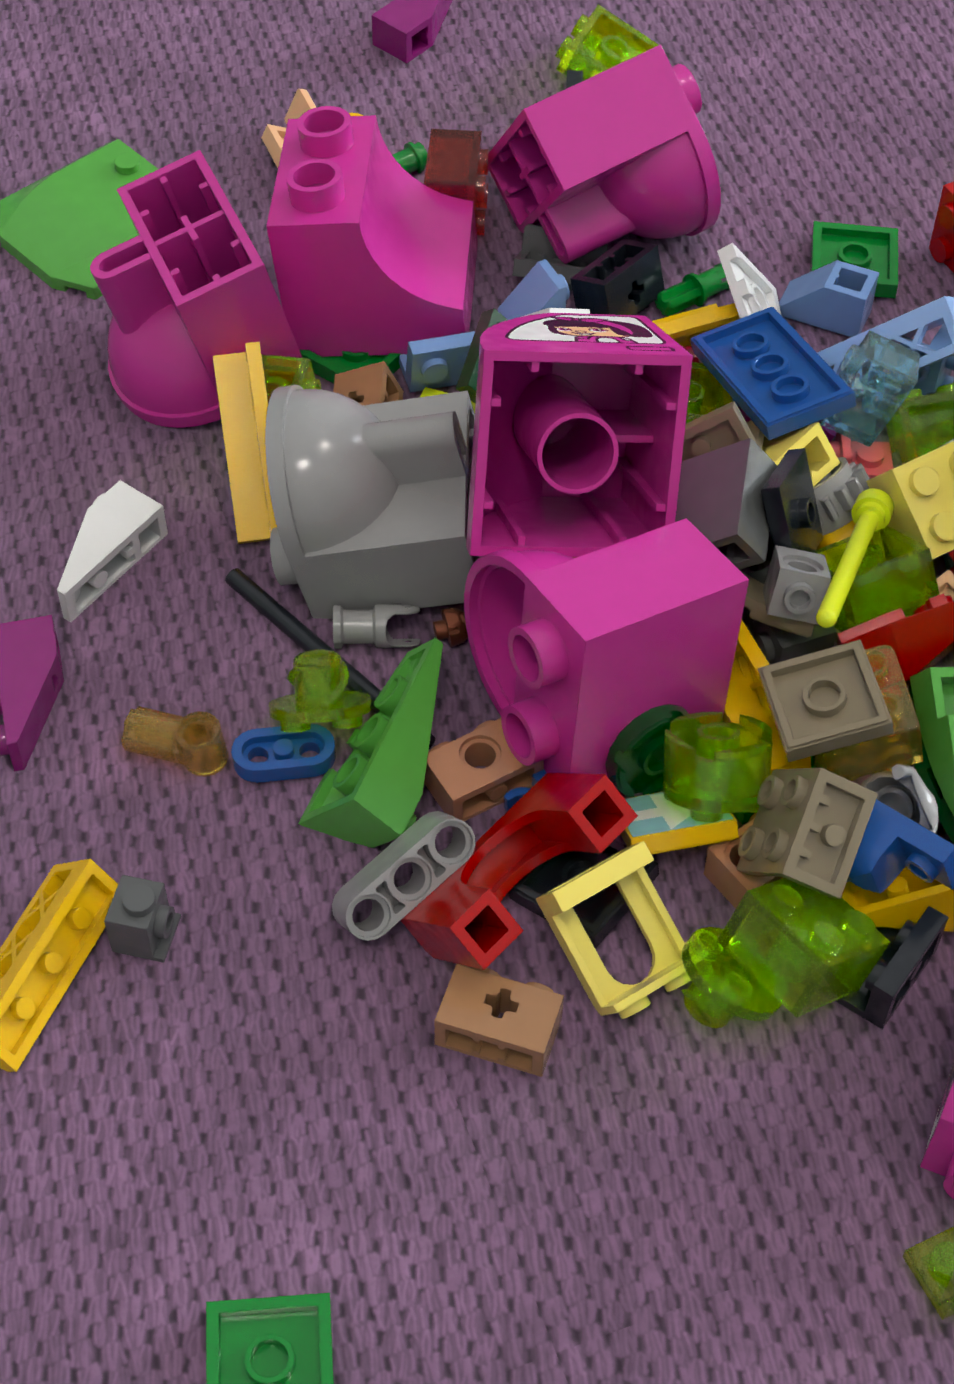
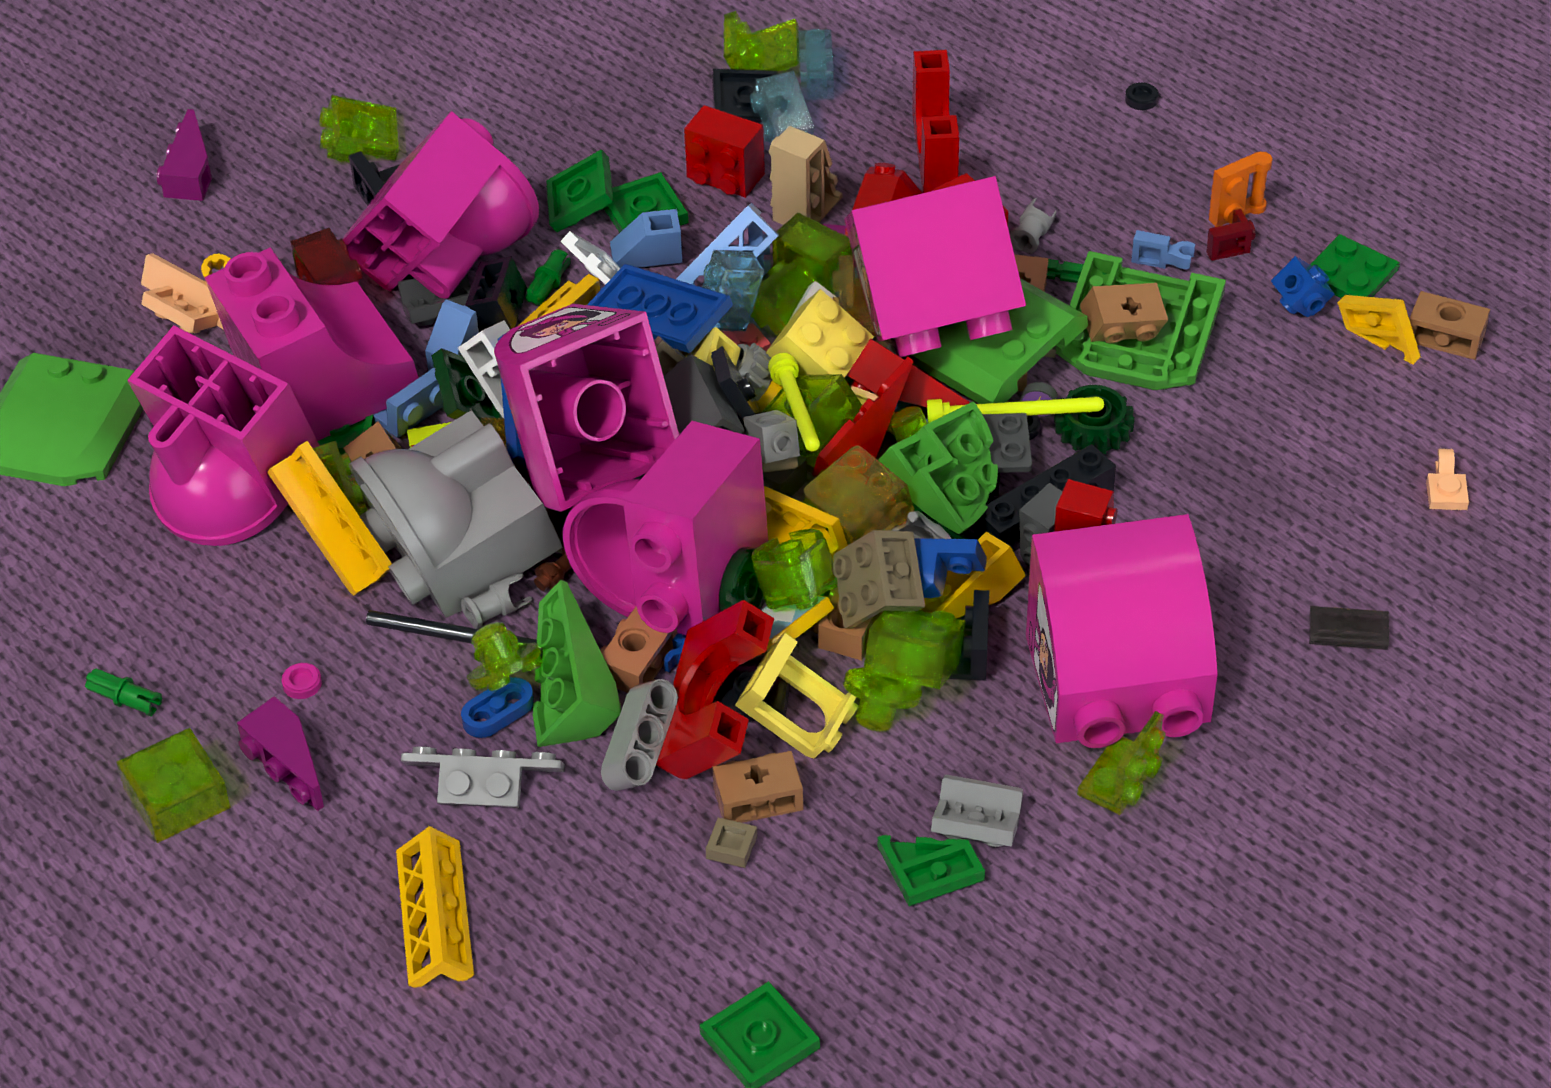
camera: 30 degrees left, 5 degrees down
(110, 612) = (301, 680): none -> dark pink tile
(111, 540) = (268, 627): white slope -> none
(141, 919) = (487, 847): dark grey brick -> none
(185, 740) = (433, 728): clear yellow piece -> none
(202, 831) = (479, 779): none -> light grey bracket
(421, 1073) = (731, 842): none -> dark tan plate
(640, 1252) = (930, 866): none -> green wing
(749, 1210) = (978, 811): none -> light grey bracket
(792, 211) = (579, 191): none -> green plate
(825, 700) = (840, 496): dark tan tile -> none

